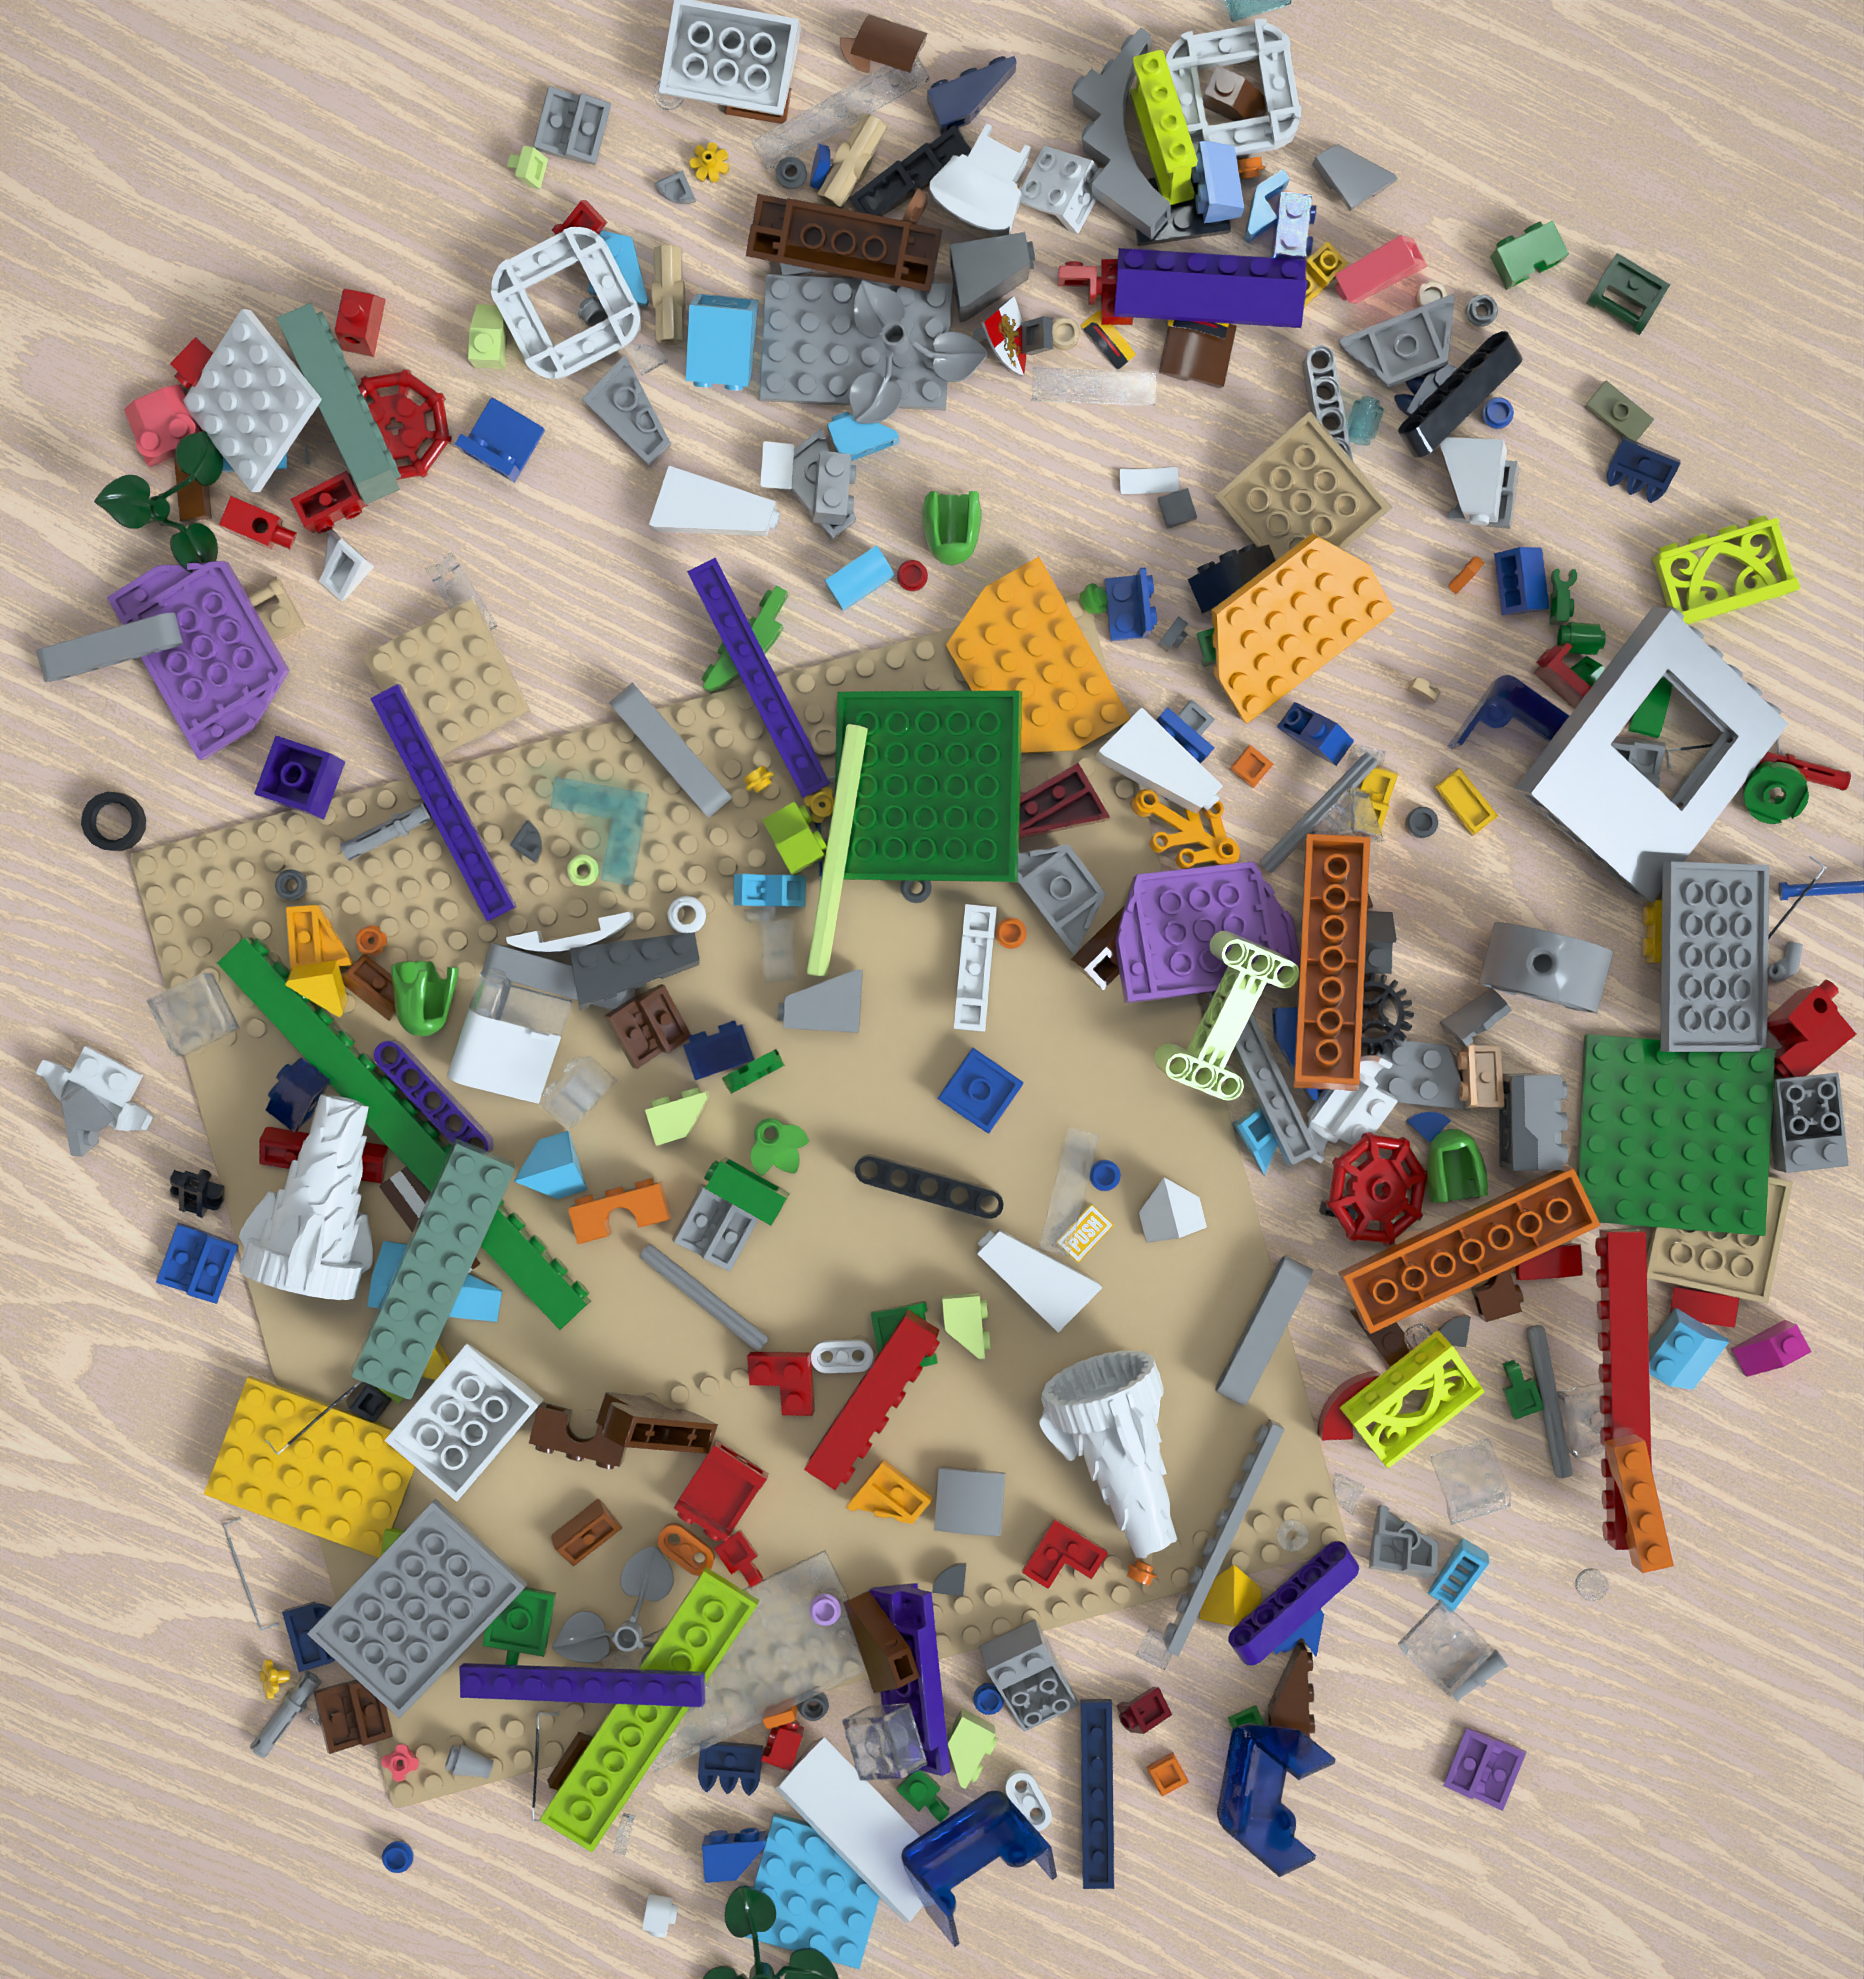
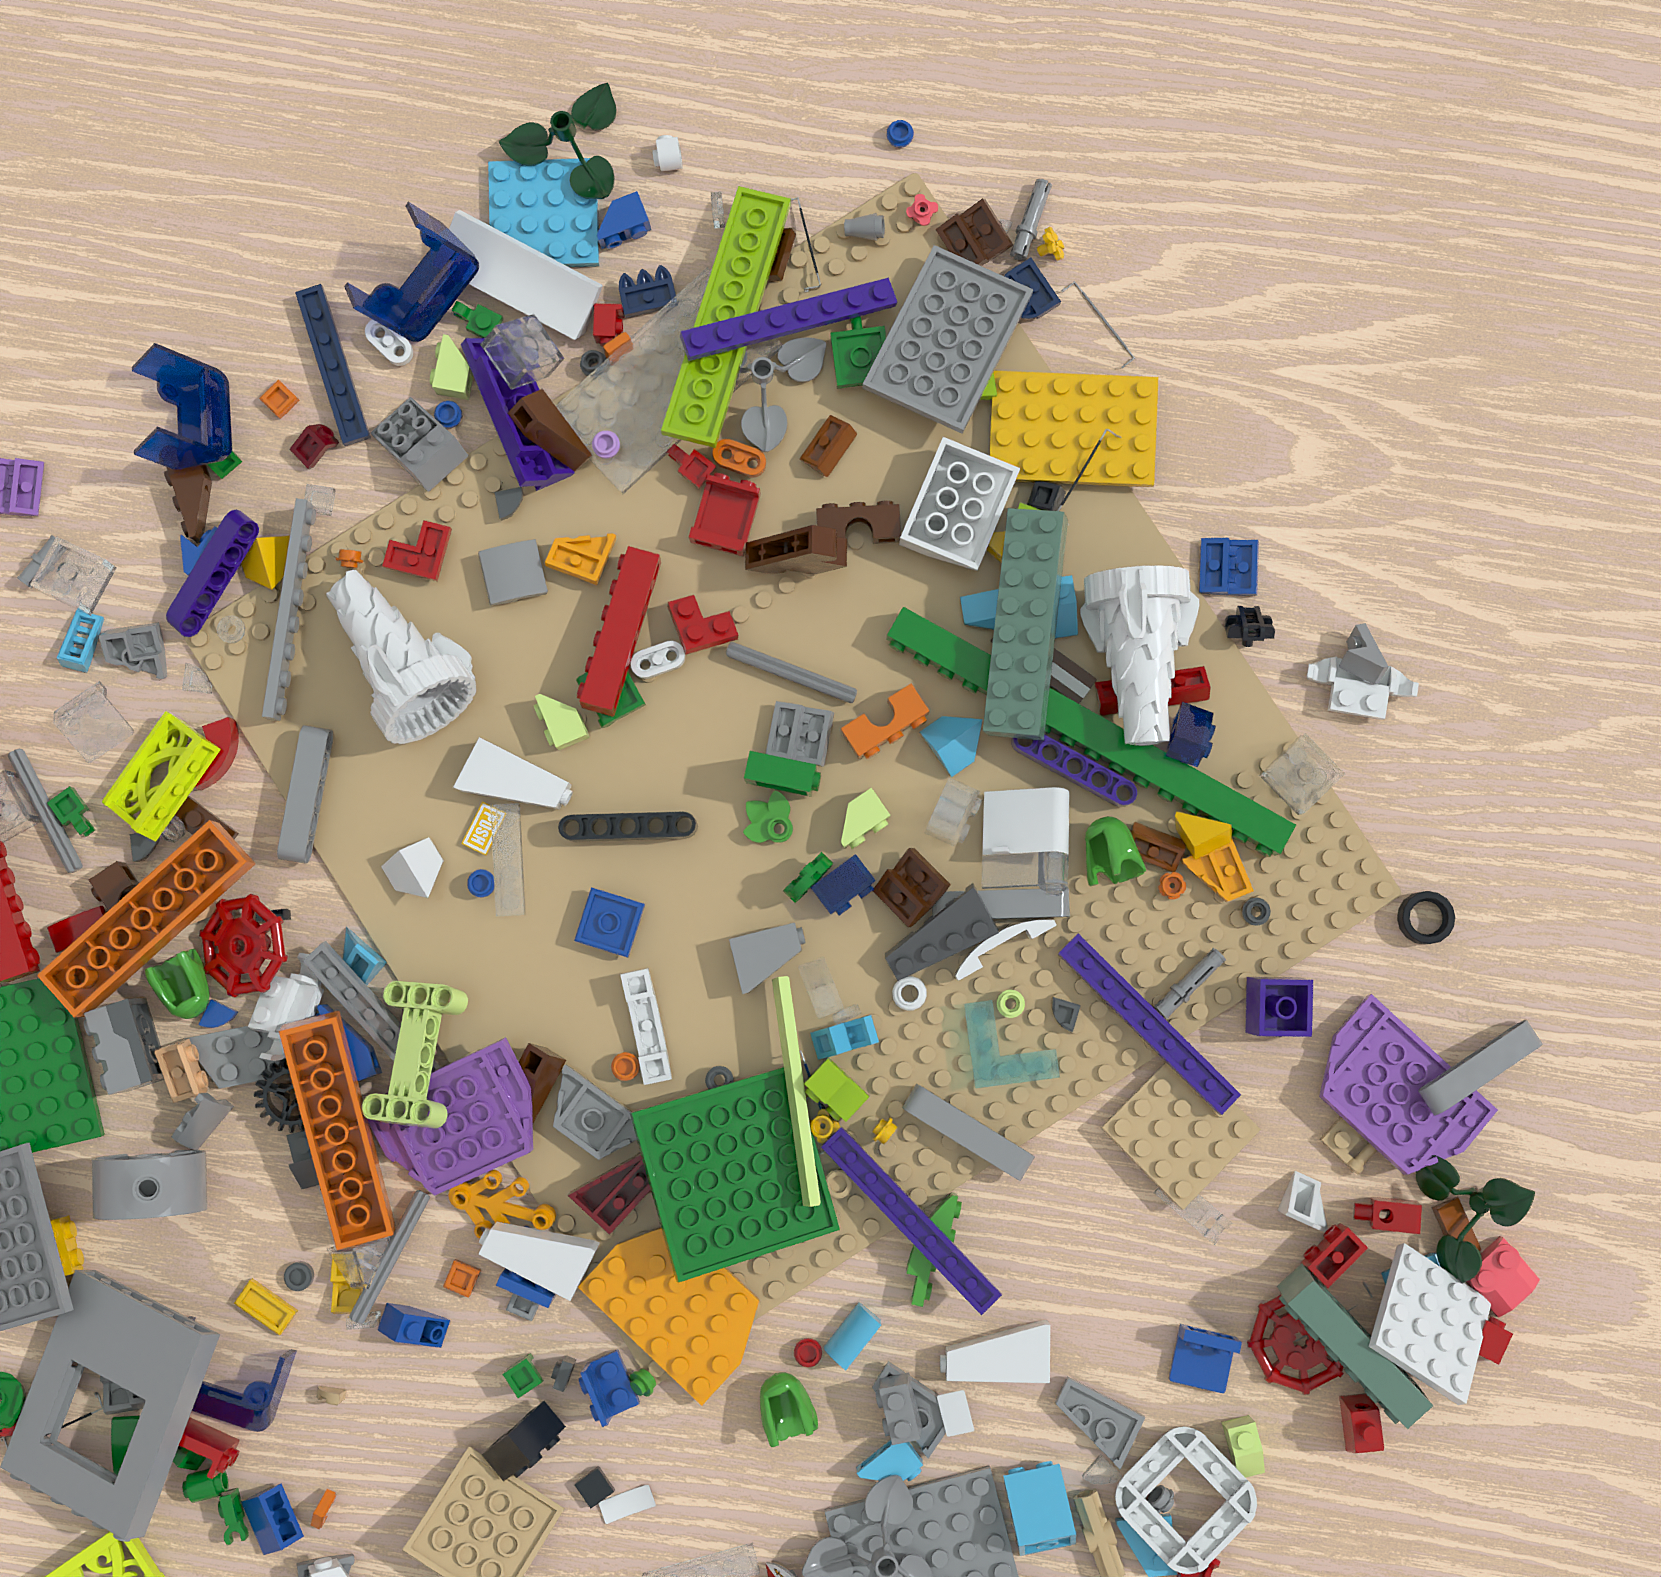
camera: 165 degrees right, 5 degrees down
(1292, 622) = (460, 1418): light orange plate -> none

